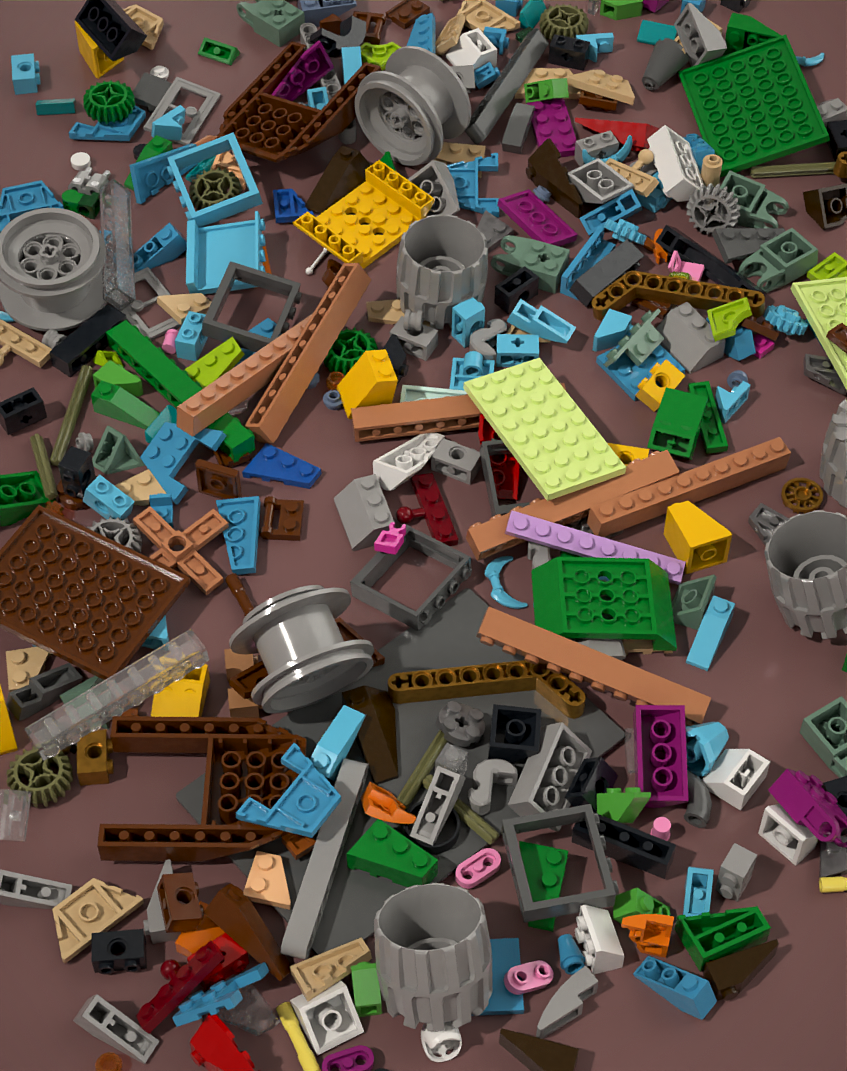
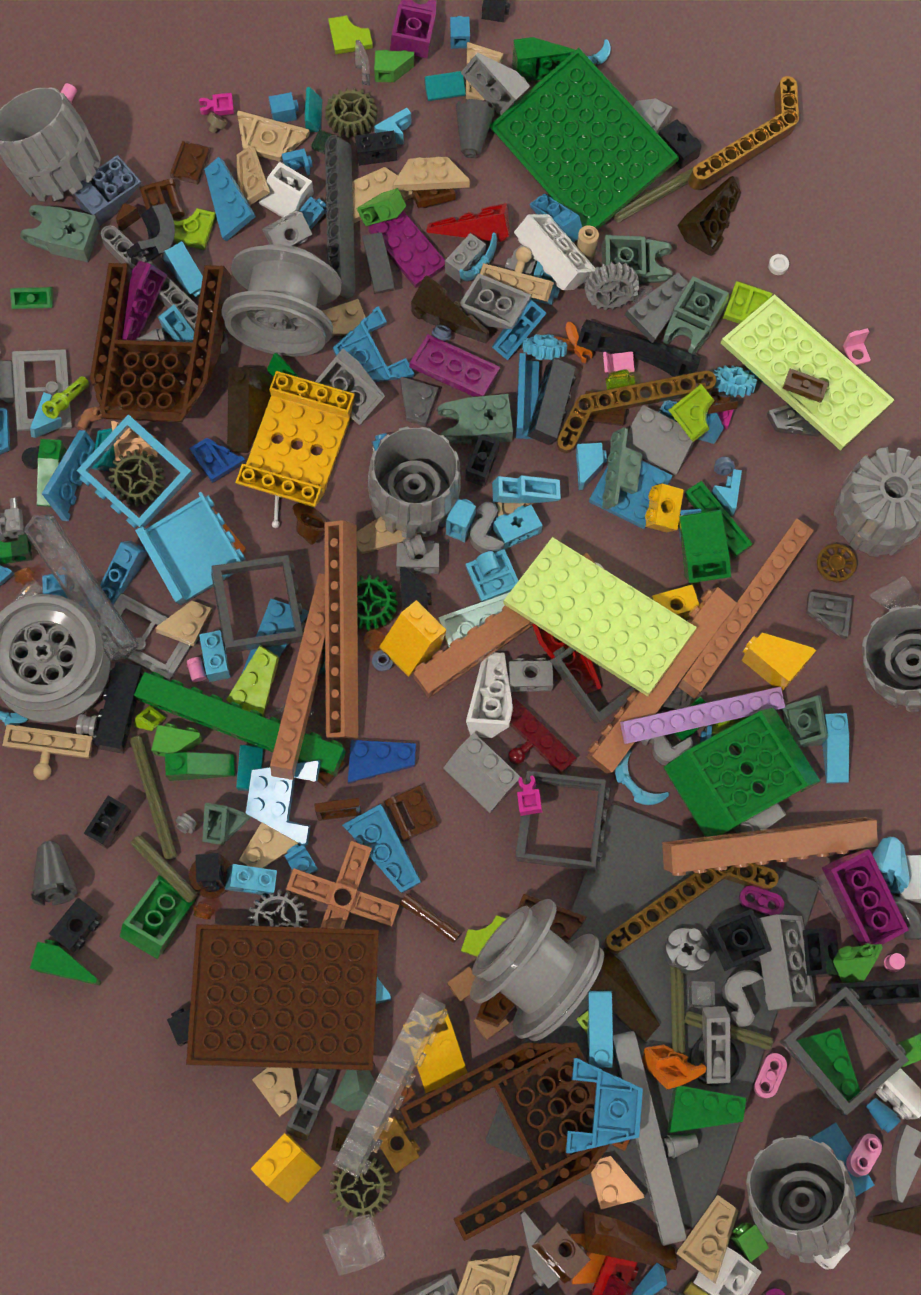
camera: 30 degrees left, 20 degrees up
(191, 116) = (78, 386): none -> lime pin
(351, 877) = (679, 1144): none -> light grey cone
(560, 713) = (761, 900): none -> magenta plate

